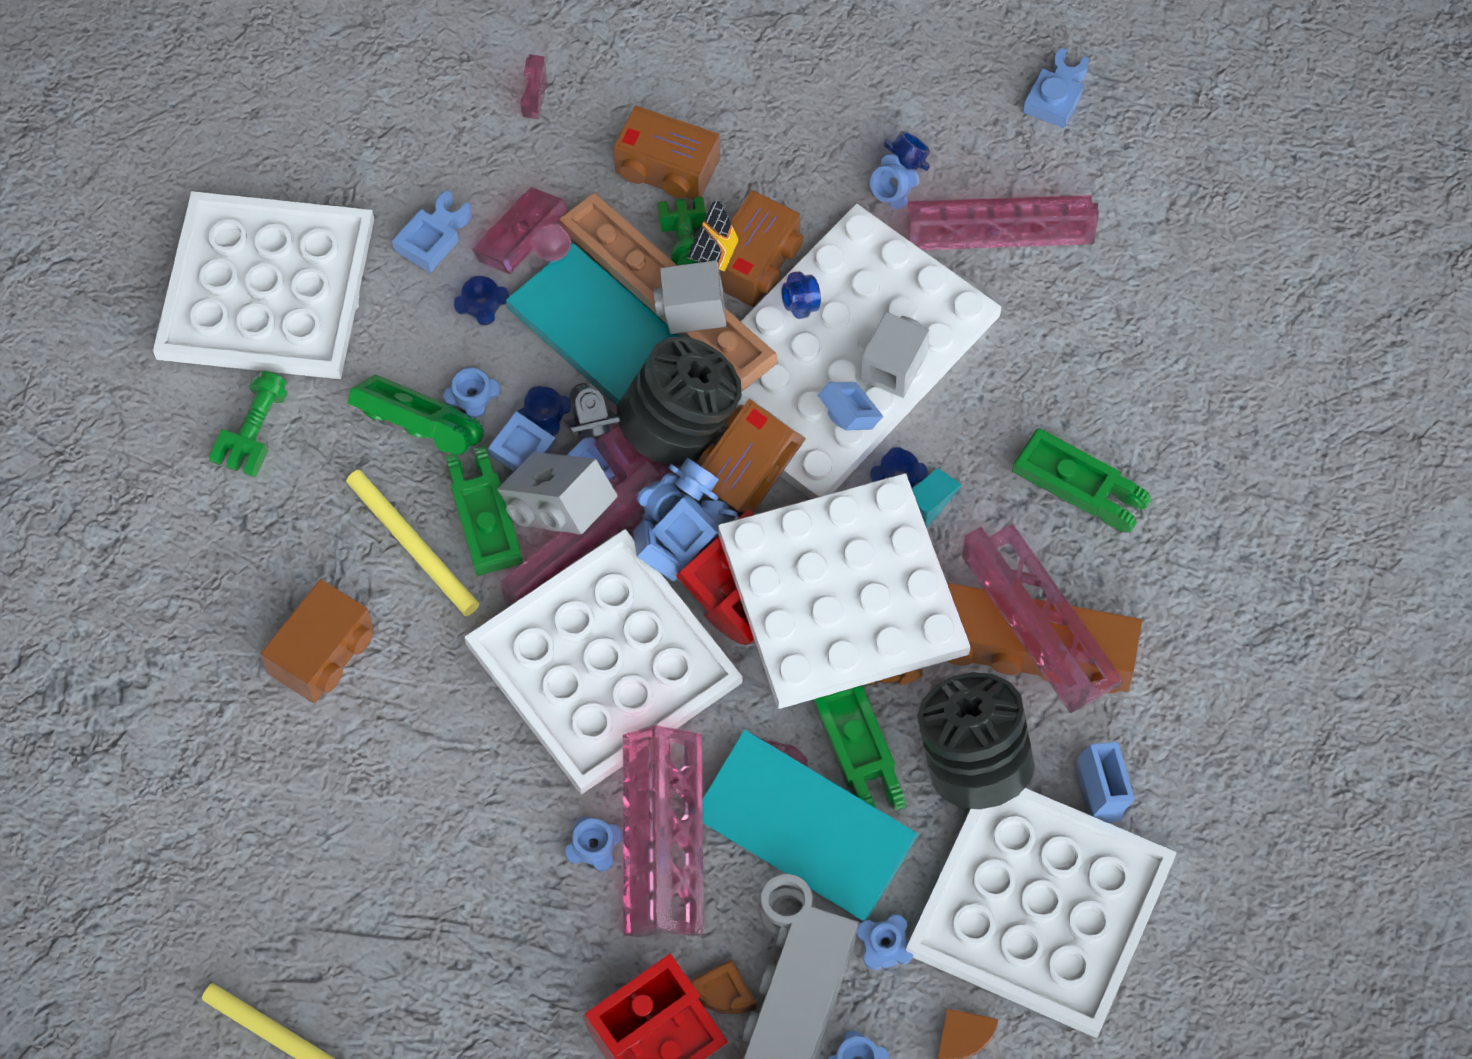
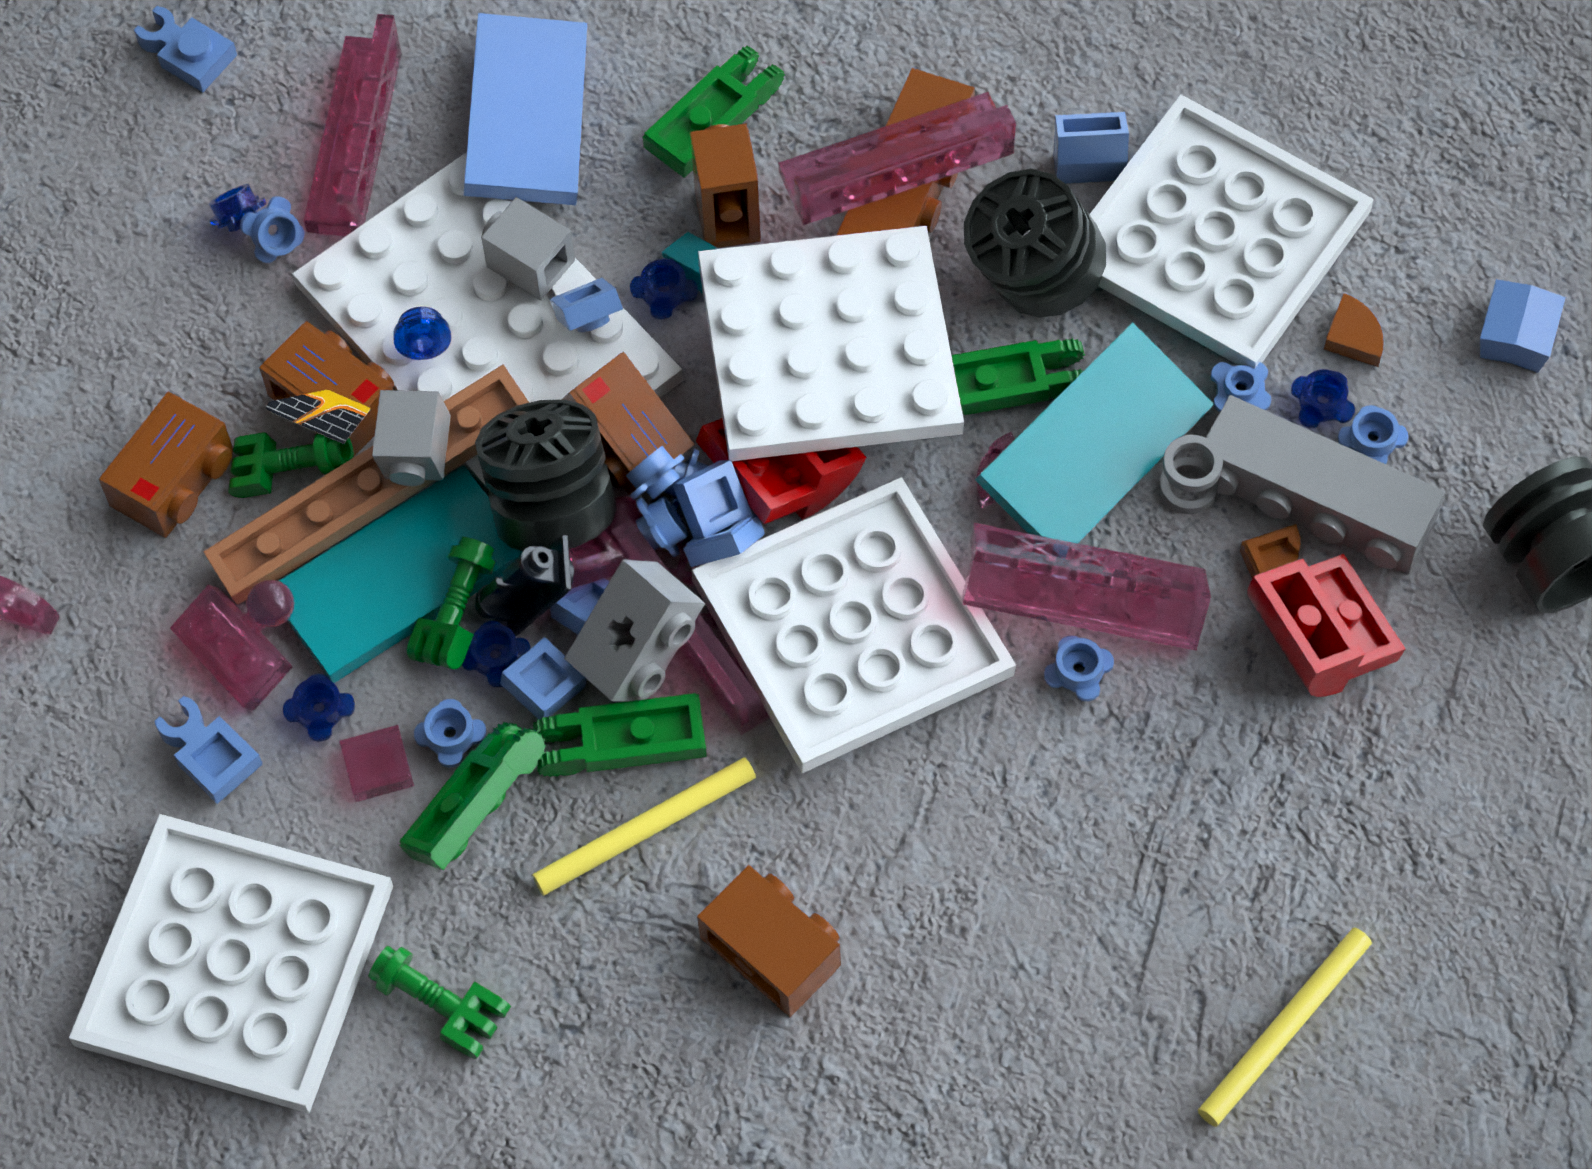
camera: 80 degrees left, 0 degrees up
(441, 349) = (376, 763): none -> clear pink tile
(549, 364) = (443, 640): none -> green hinge
(891, 1000) = (1322, 384): none -> clear blue plate
(989, 489) = (726, 185): none -> dark orange brick
(1045, 336) = (526, 109): none -> medium blue tile

